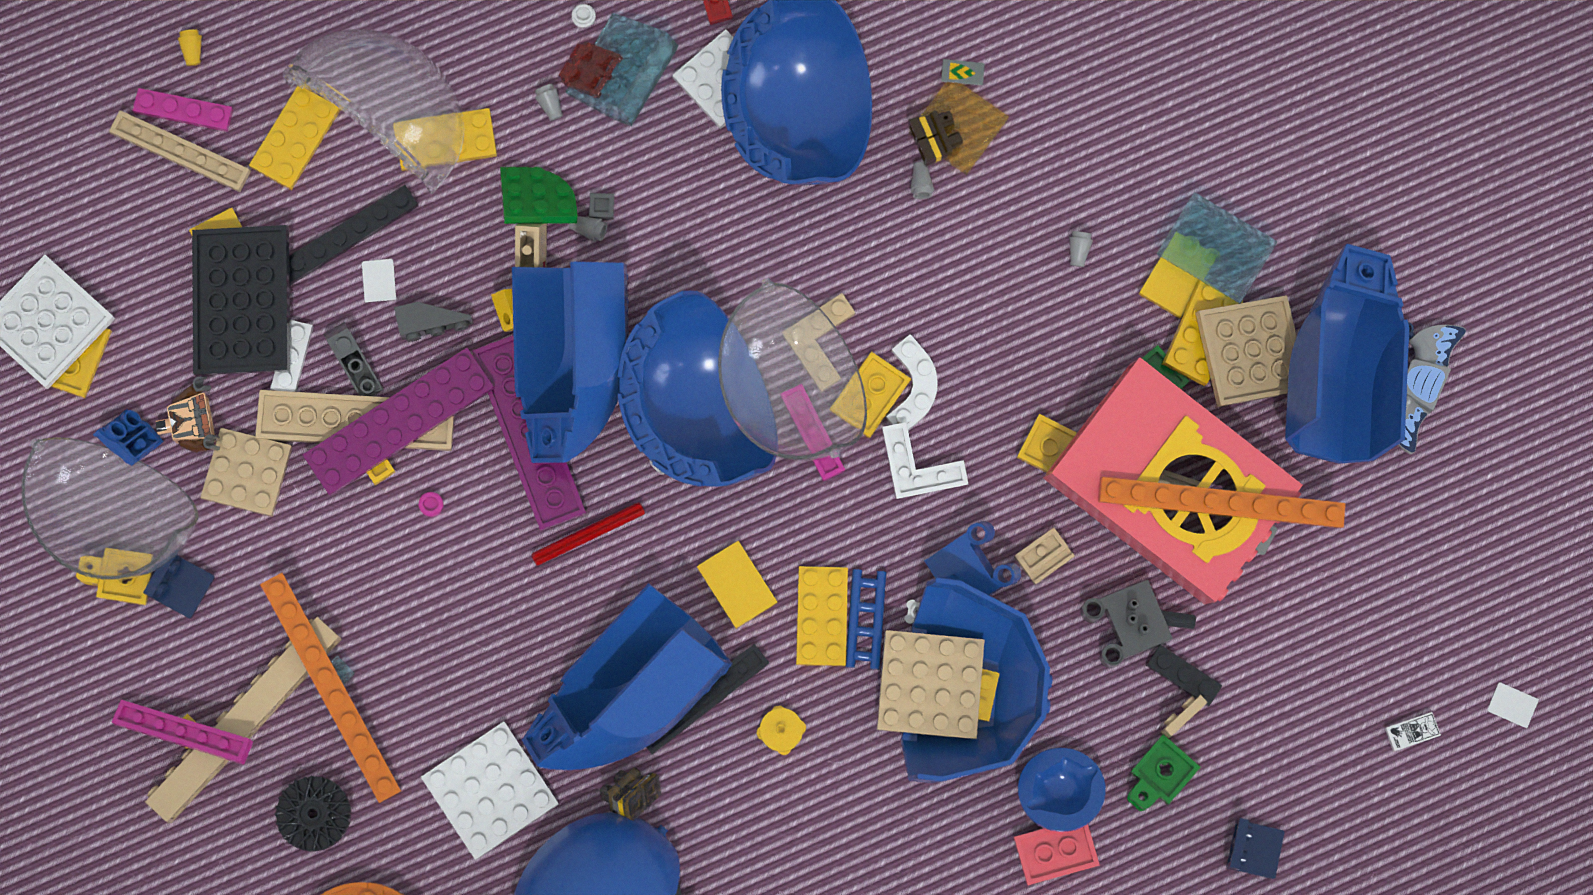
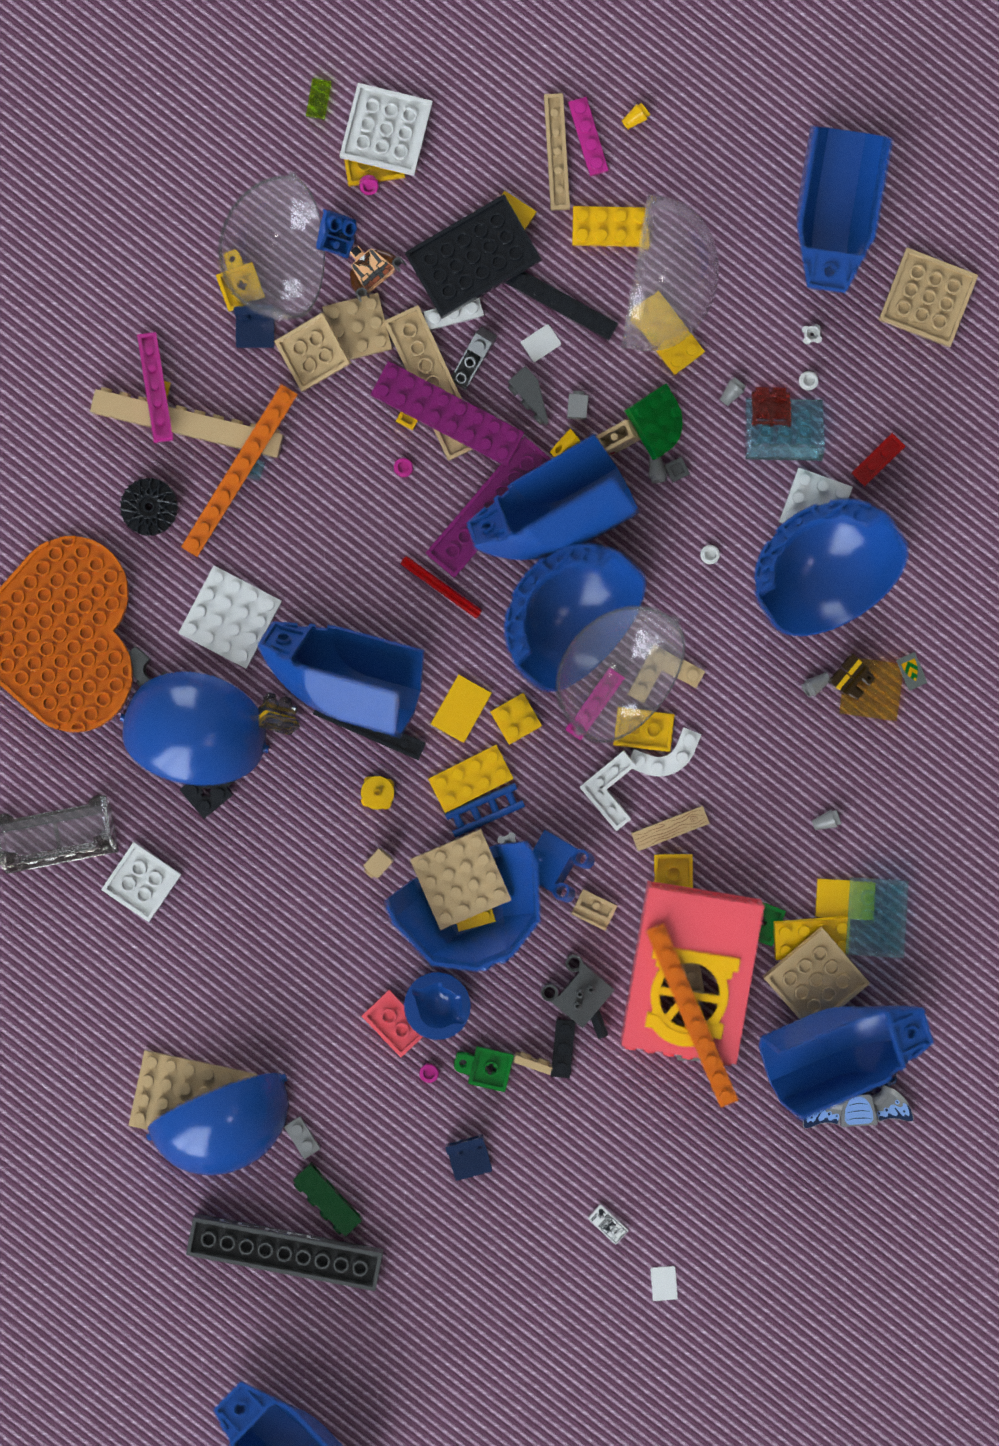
camera: 65 degrees right, 10 degrees up
(95, 373) = (368, 184): none -> dark pink tile
(244, 534) = (312, 352): none -> tan plate
(470, 275) = (577, 405): none -> light grey brick
(715, 220) = (710, 554): none -> white plate
(781, 529) = (516, 718): none -> yellow plate
(862, 770) = (378, 863): none -> tan brick
(997, 424) = (670, 828): none -> tan tile
(1133, 843) = (429, 1073): none -> dark pink tile

